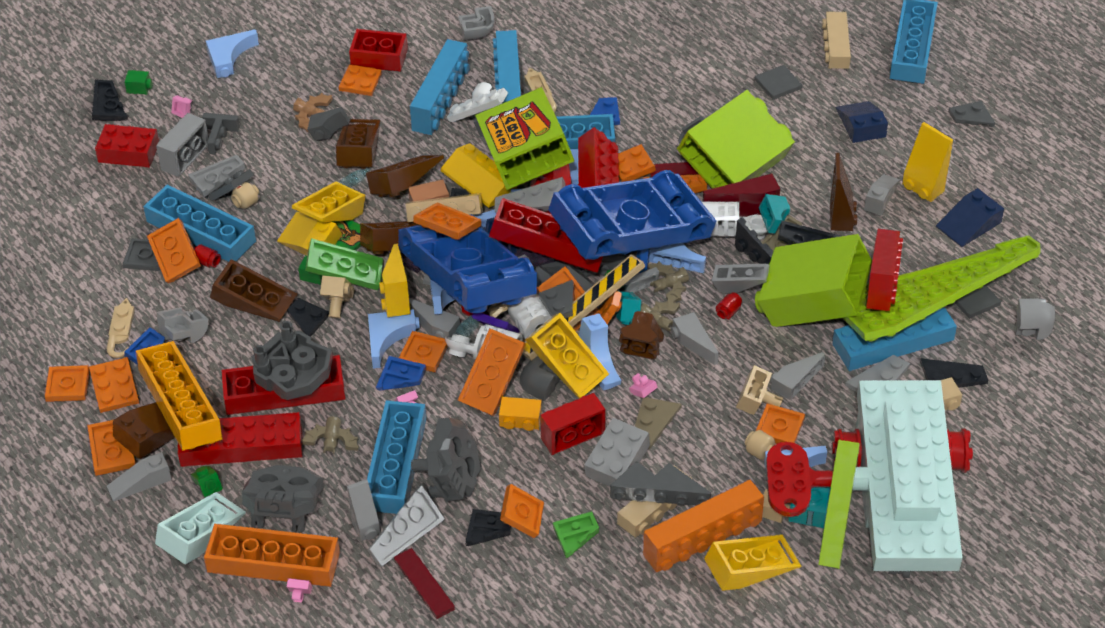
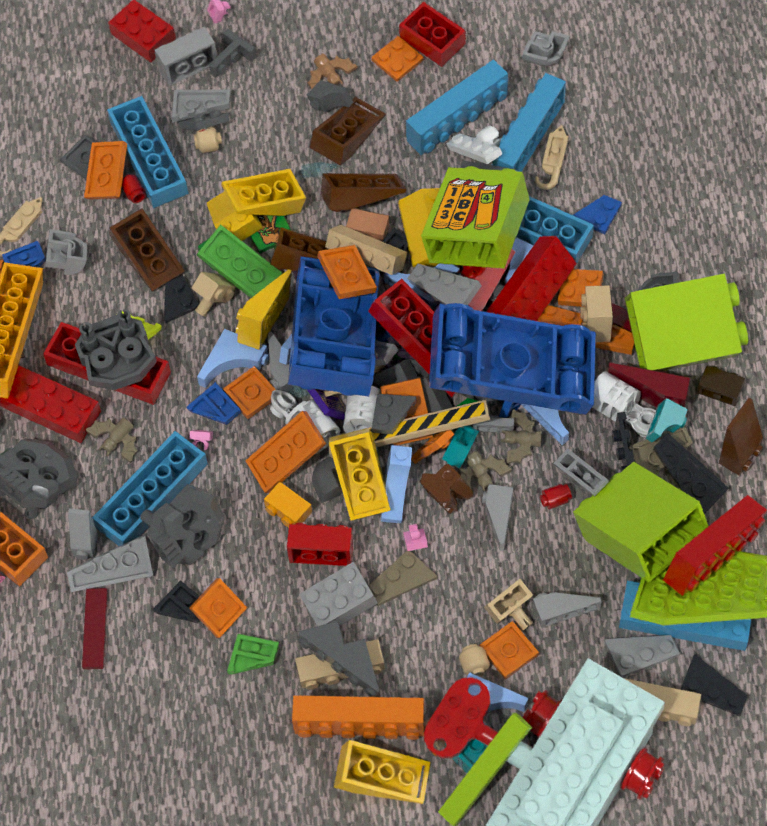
camera: 35 degrees right, 15 degrees up
(663, 157) = (597, 311): none -> tan brick
(793, 177) = (721, 385): none -> dark brown brick

